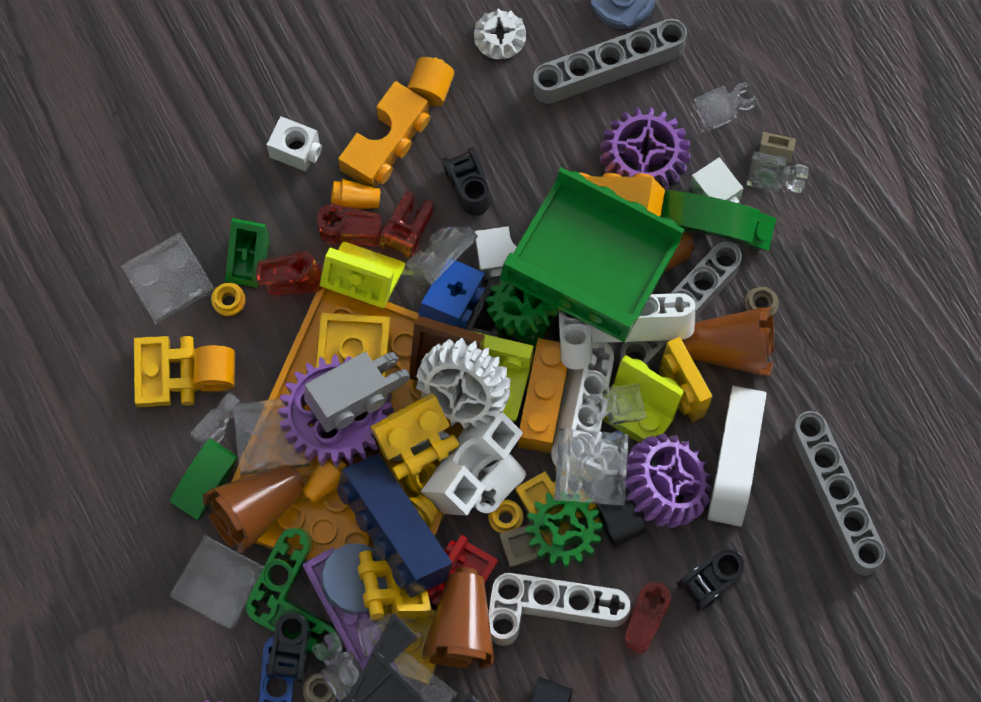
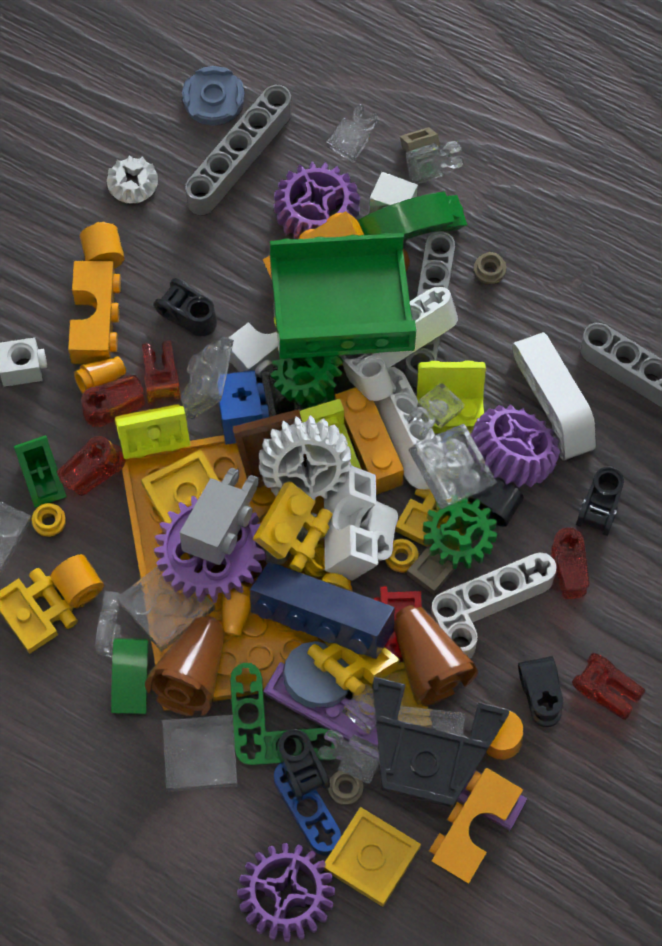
camera: 35 degrees left, 5 degrees down
(680, 367) = (466, 346): yellow plate -> none
(735, 341) = (492, 307): dark orange cone -> none

